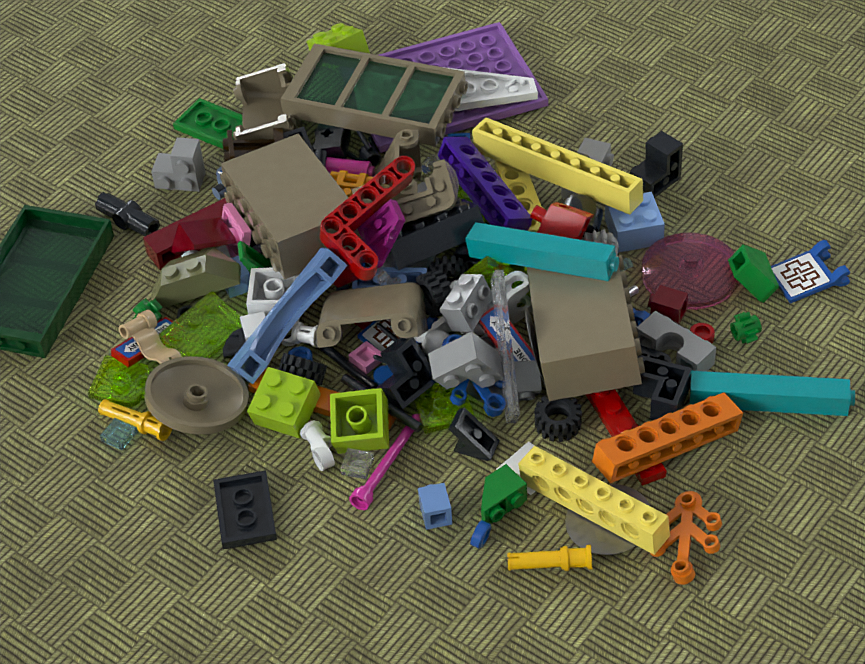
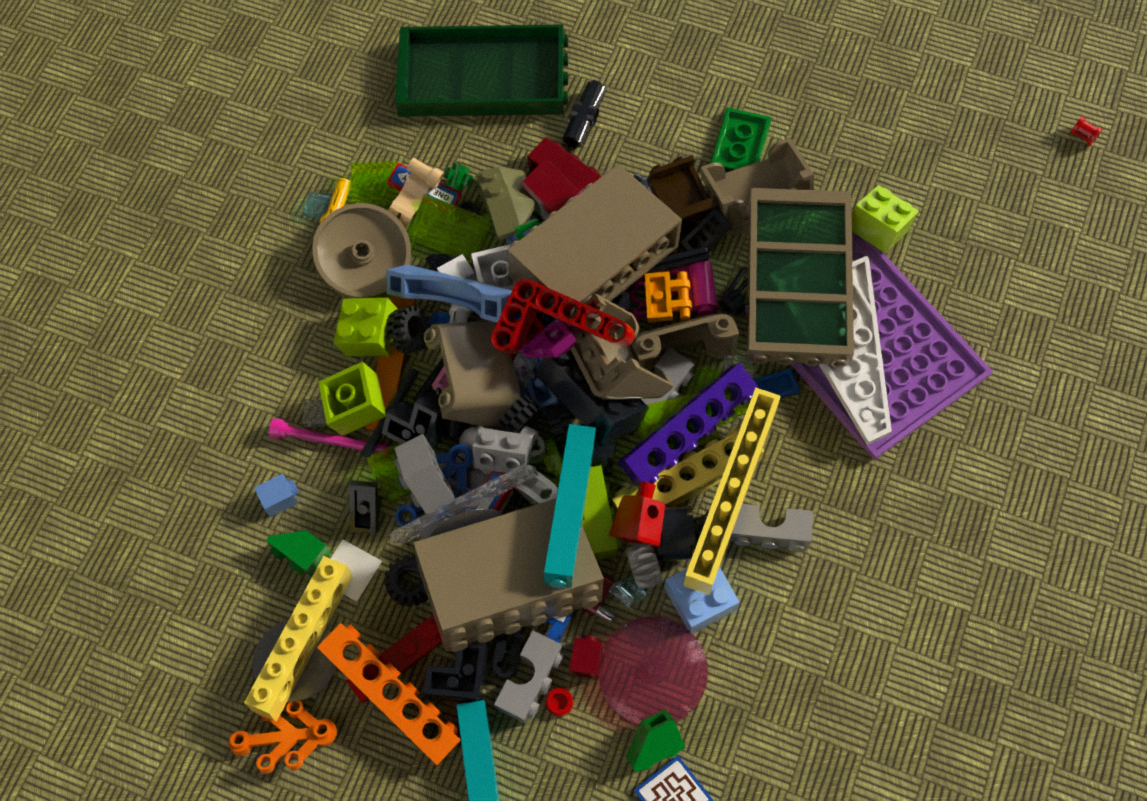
camera: 75 degrees right, 20 degrees up
(181, 168) = (654, 136): light grey brick -> none
(244, 510) = (247, 335): black plate -> none
(319, 443) = (339, 365): white connector -> none
(333, 140) = (730, 260): black brick -> none
(481, 534) = (251, 545): blue tile -> none
(564, 558) = (236, 628): yellow pin -> none
(661, 164) = (789, 601): black brick -> none
(745, 327) = (570, 747): green gear -> none

